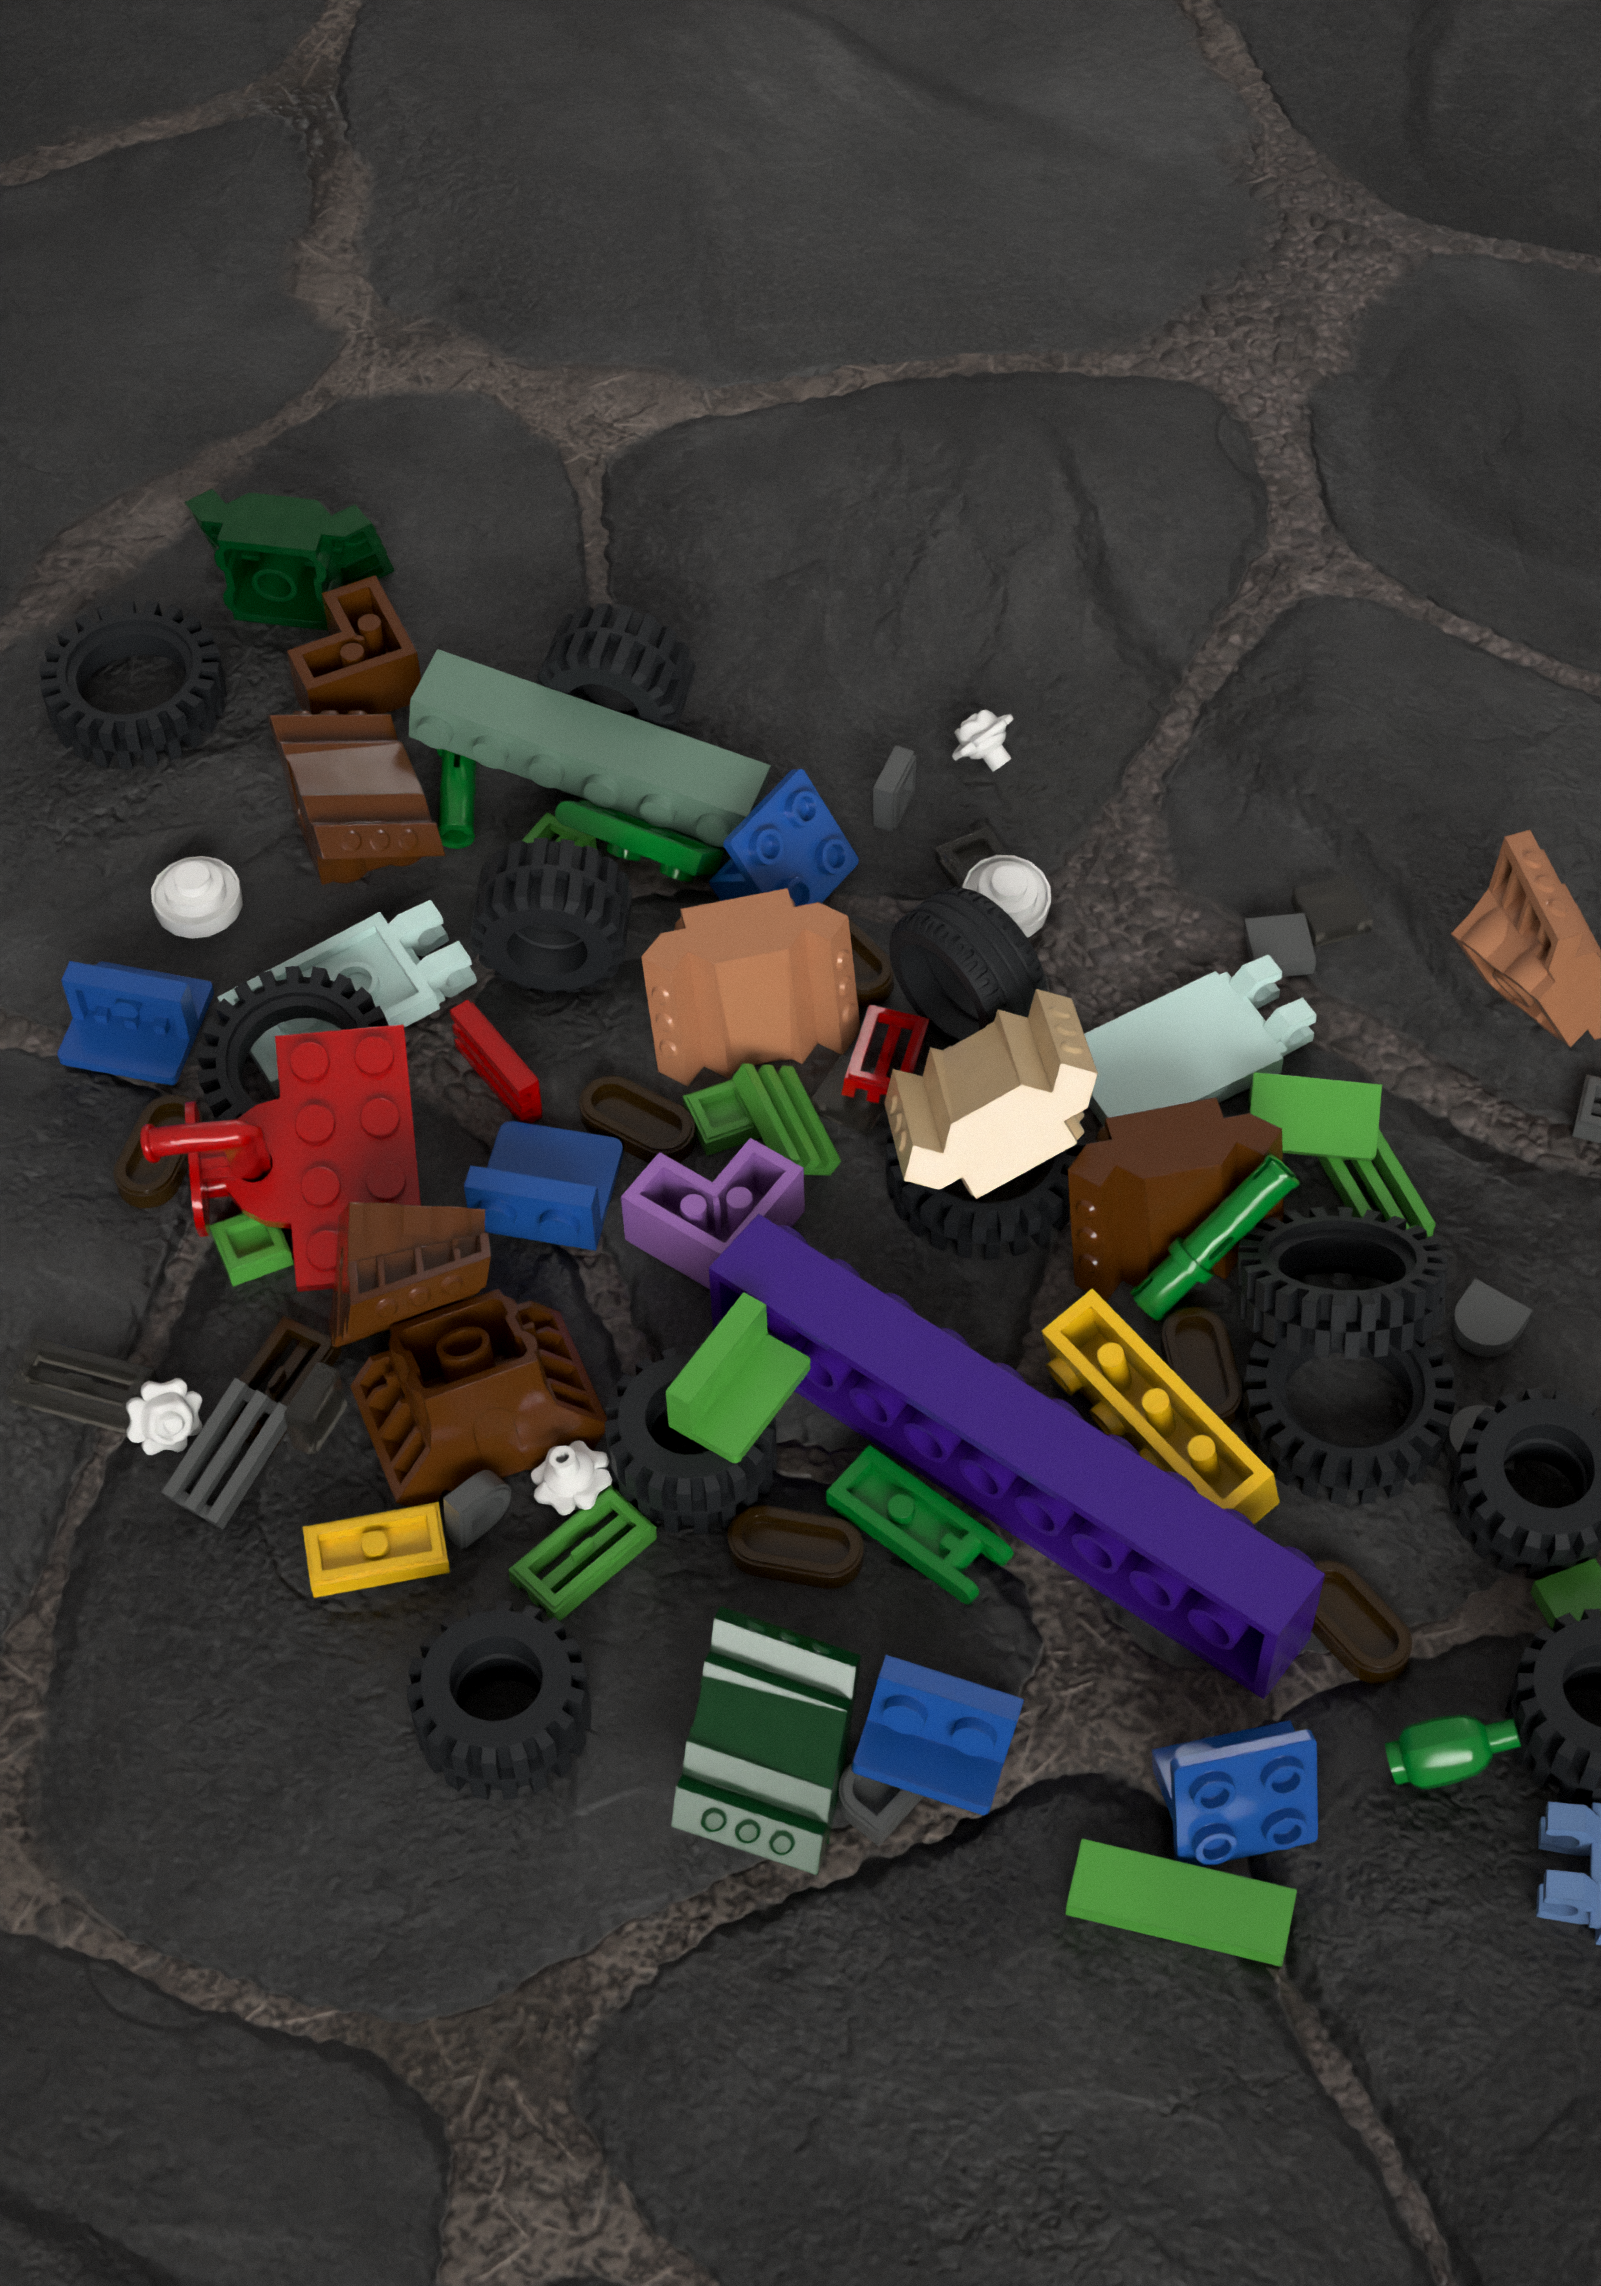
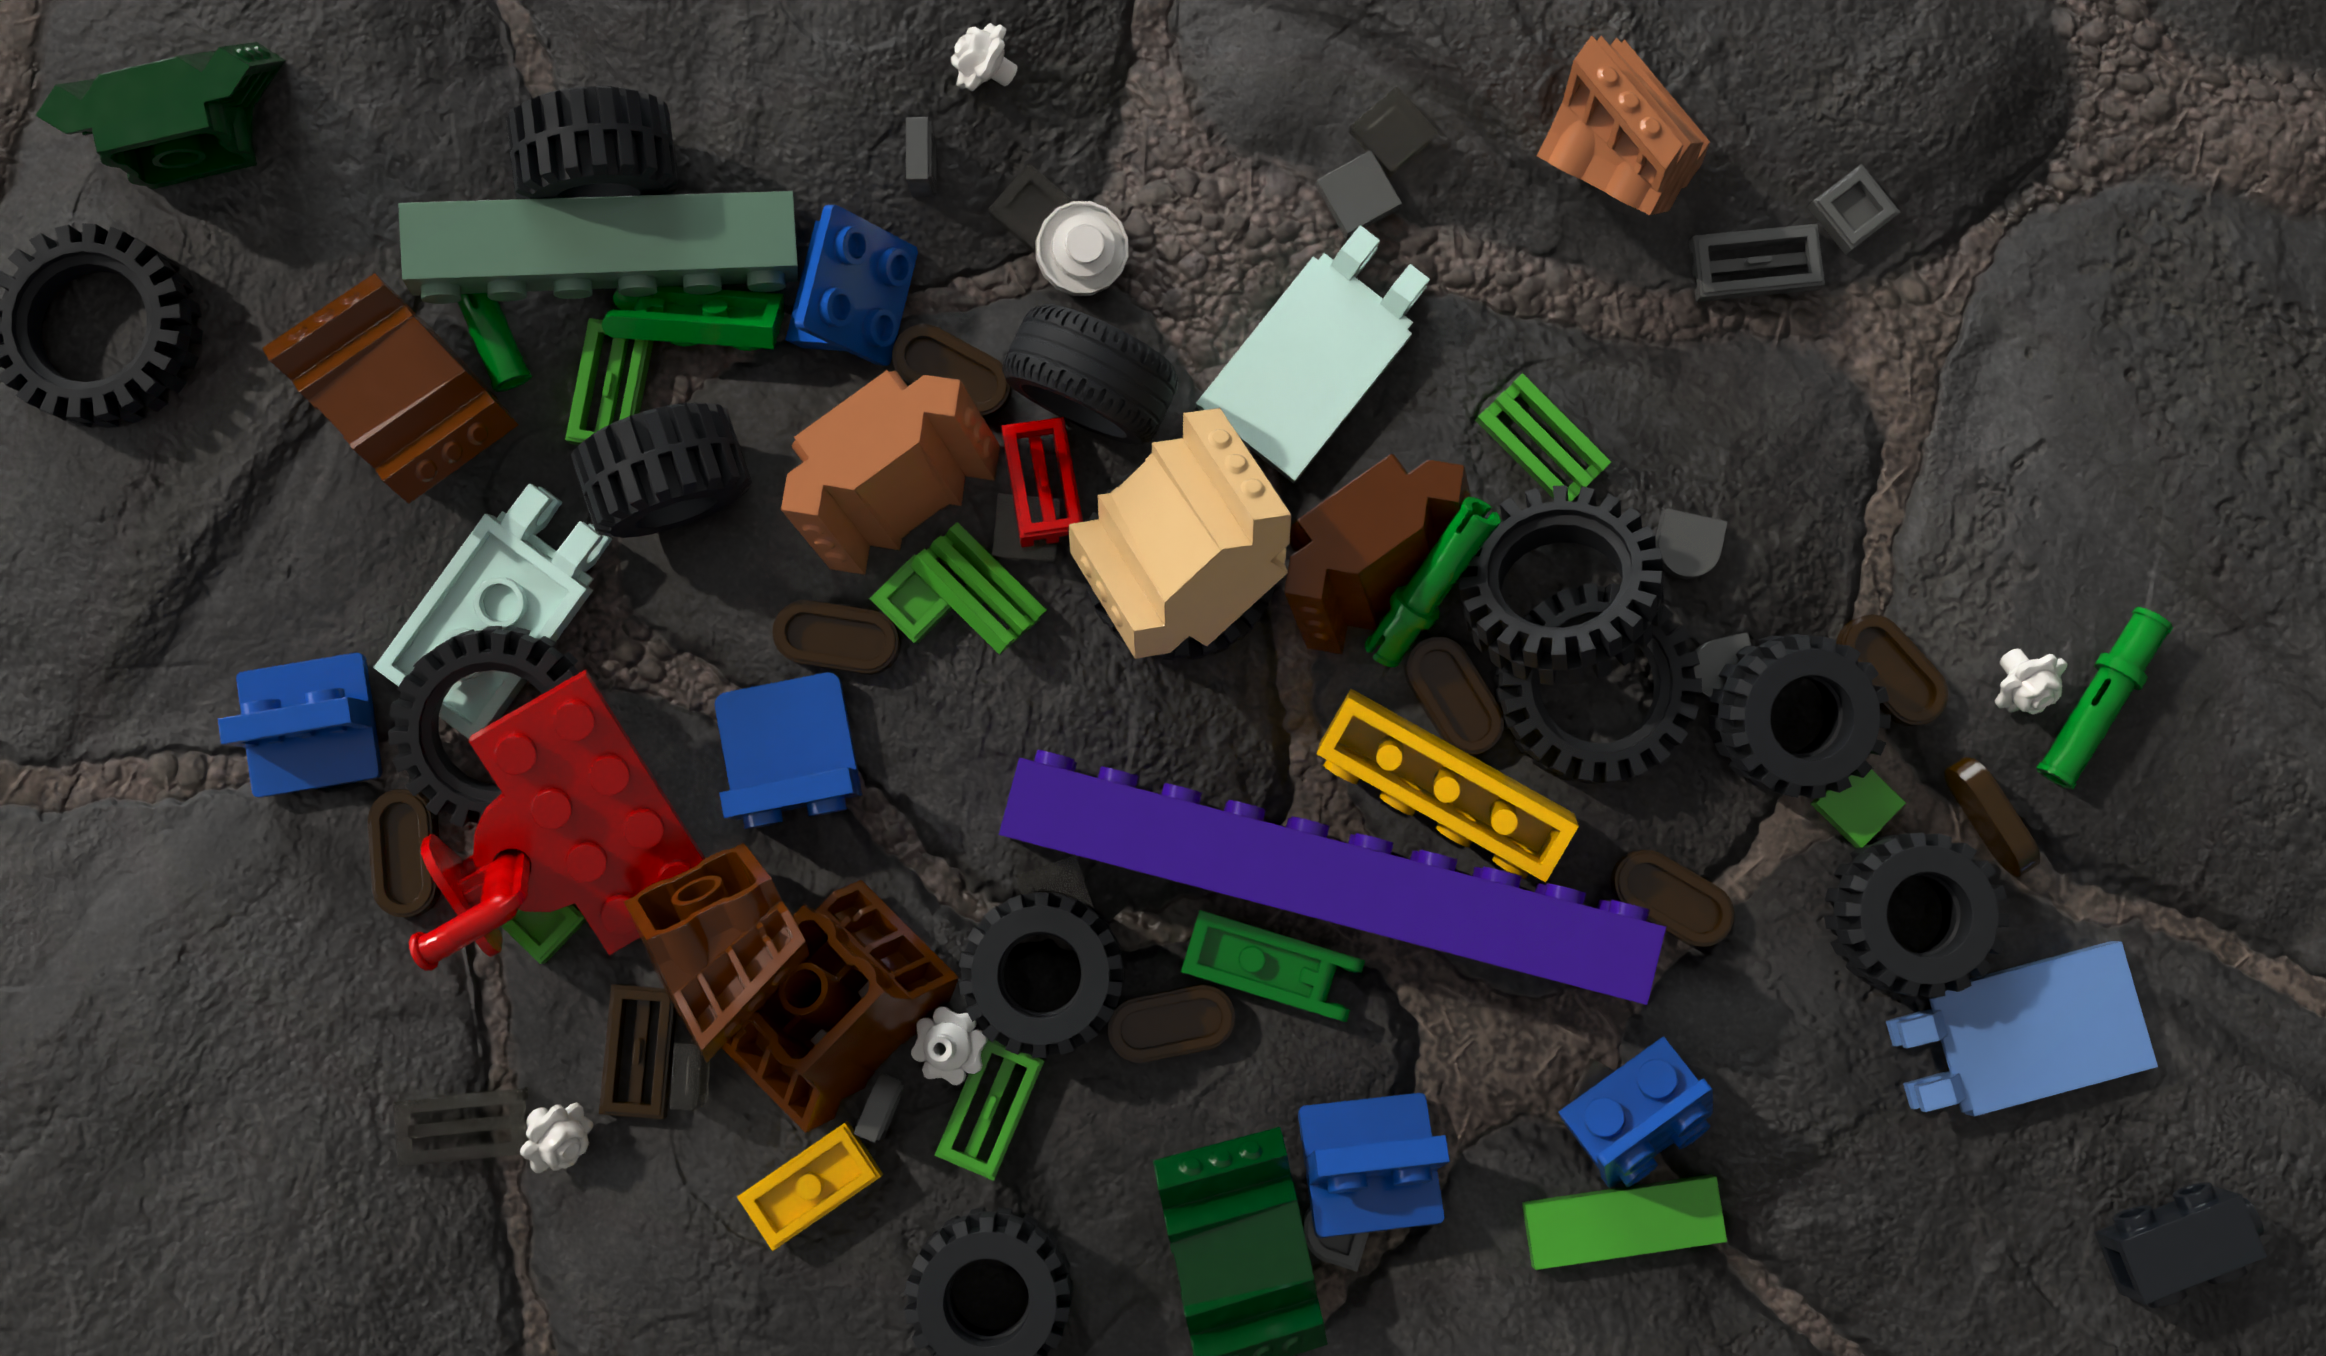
camera: 25 degrees left, 30 degrees up
(197, 897) = (293, 560): white plate -> none
(208, 1441) = (627, 1199): dark grey tile -> none
(363, 661) = (323, 220): reddish brown brick -> none
(496, 1063) = (678, 637): red tile -> none
(694, 1220) = (976, 746): medium lavender brick -> none
(735, 1382) = (1075, 936): bright green panel -> none
(1319, 1114) = (1464, 391): bright green panel -> none
(1447, 1749) = (1799, 1002): green plant -> none

